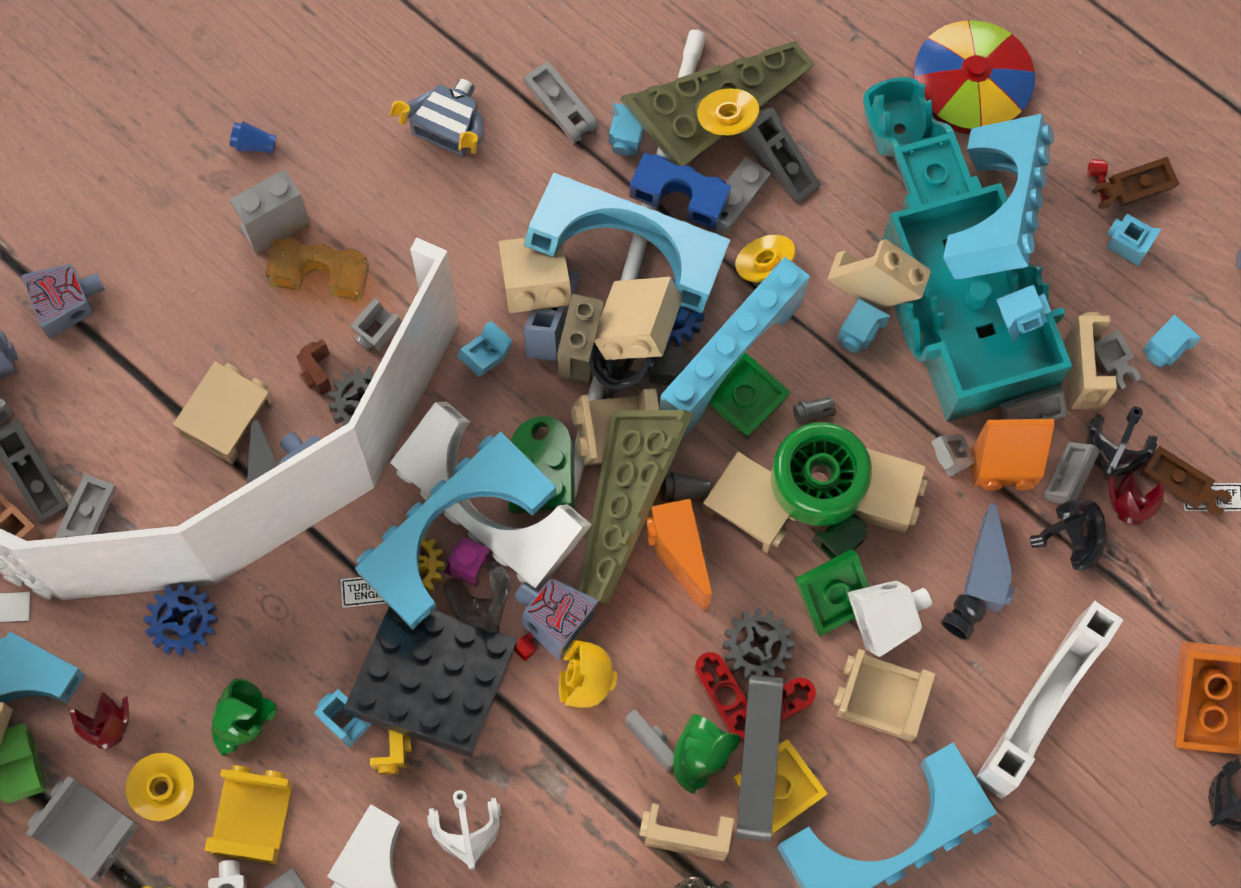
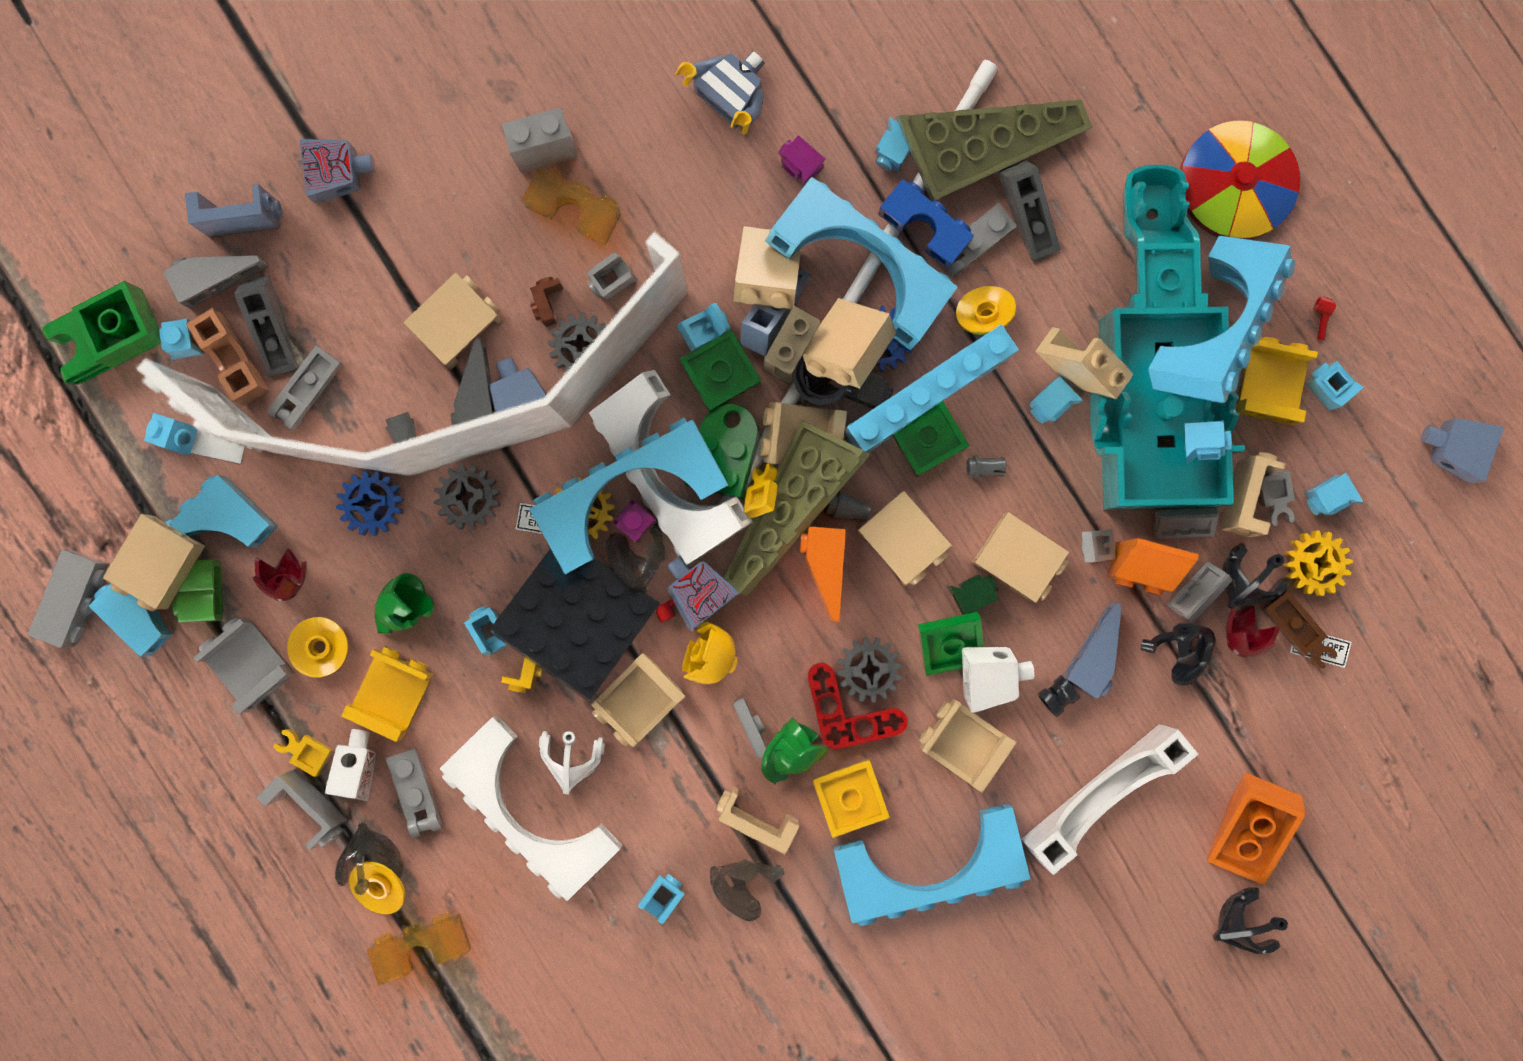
camera: 15 degrees right, 15 degrees up
(250, 138) = (542, 57): blue cone -> none
(271, 589) = (469, 510): none -> dark grey gear
(514, 388) = (720, 370): none -> green plate
(523, 746) = (637, 700): none -> tan panel
(536, 165) = (800, 160): none -> magenta window
(560, 102) = (841, 99): light grey plate -> none
(594, 493) = (762, 495): none -> yellow plate
(728, 111) = (997, 150): yellow dish -> none
(759, 758) = (839, 773): dark grey beam -> none
(826, 450) = (995, 532): green wheel -> none
(1074, 250) = (1275, 381): none -> yellow panel
(1138, 183) = (1358, 332): reddish brown plate -> none
(1169, 421) = (1323, 553): none -> yellow gear

